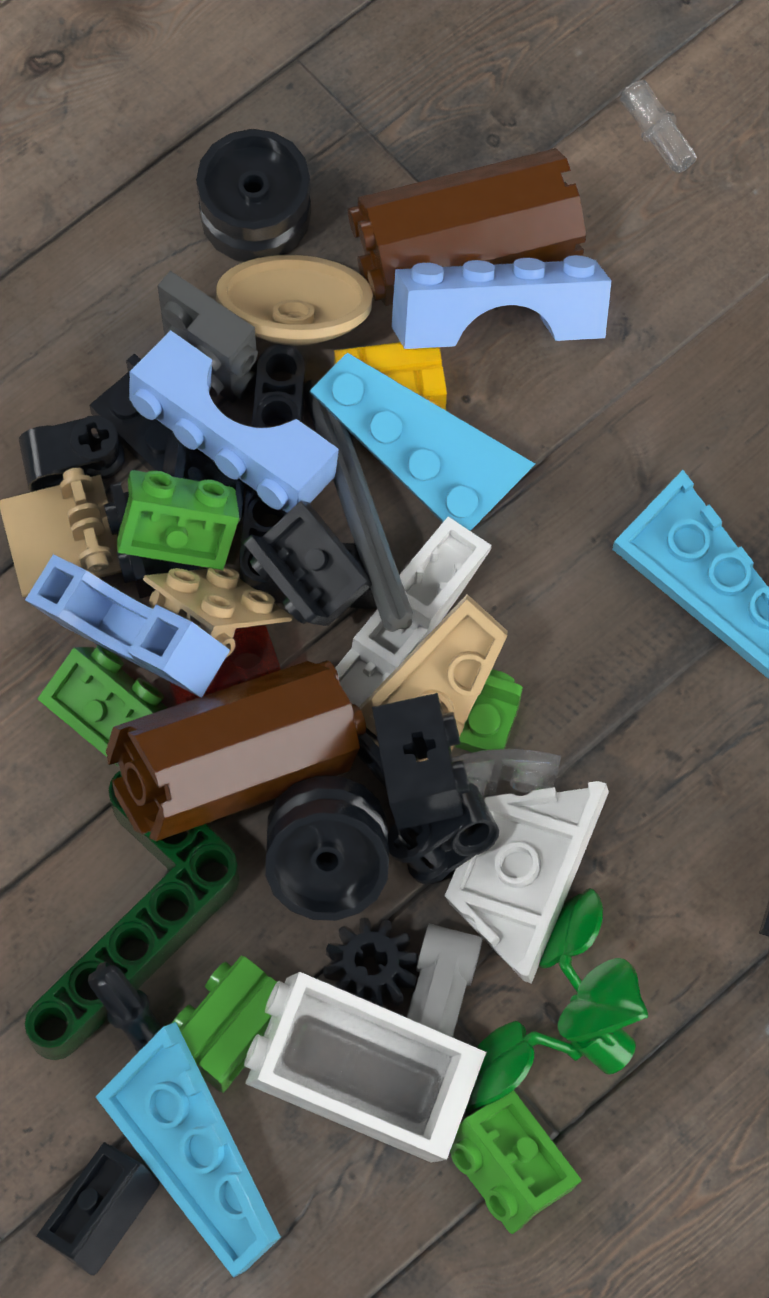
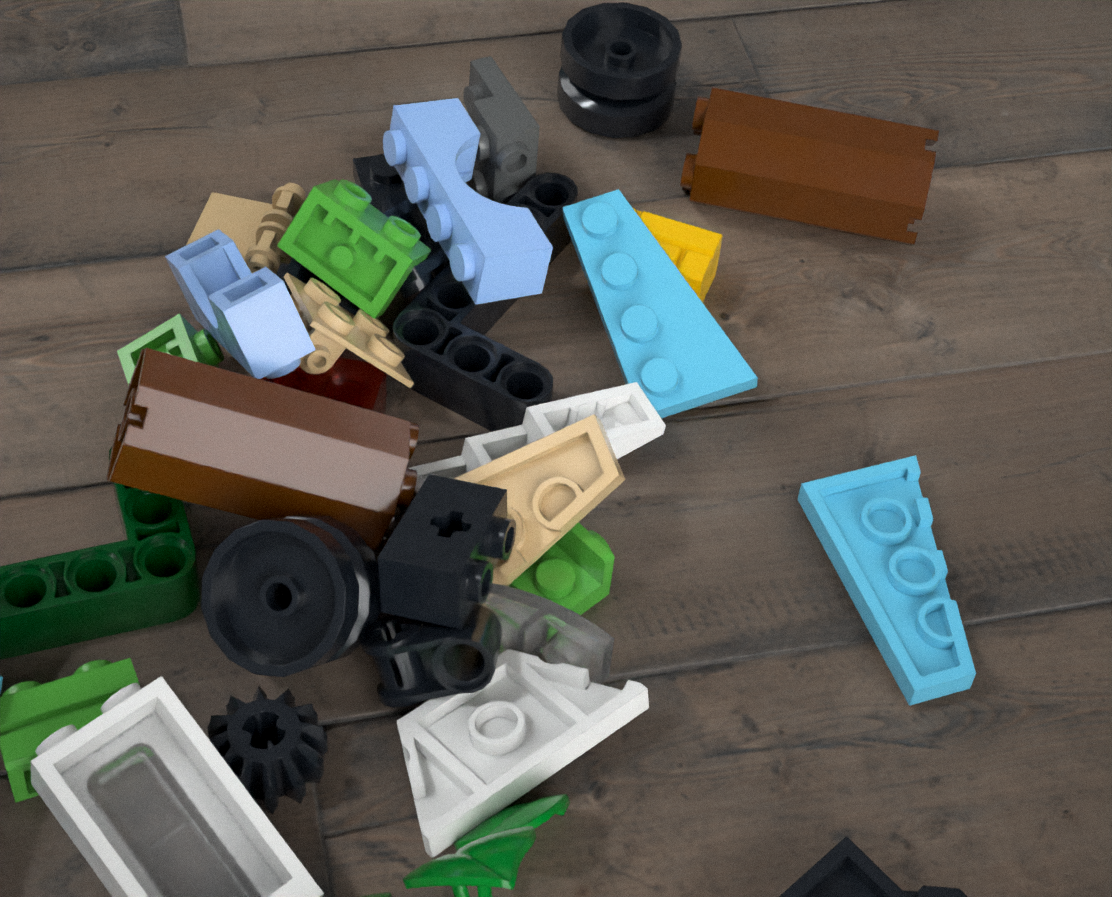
camera: 25 degrees right, 20 degrees down
(57, 448) = (298, 164): black piece -> none
(296, 298) = (601, 158): tan dish -> none
(308, 566) = (456, 340): black bracket -> none
(363, 519) = (541, 340): dark grey axle -> none
(439, 302) = (875, 257): light blue arch -> none
(445, 970) = (348, 794): light grey piece -> none
(658, 126) = (1053, 186): clear axle -> none

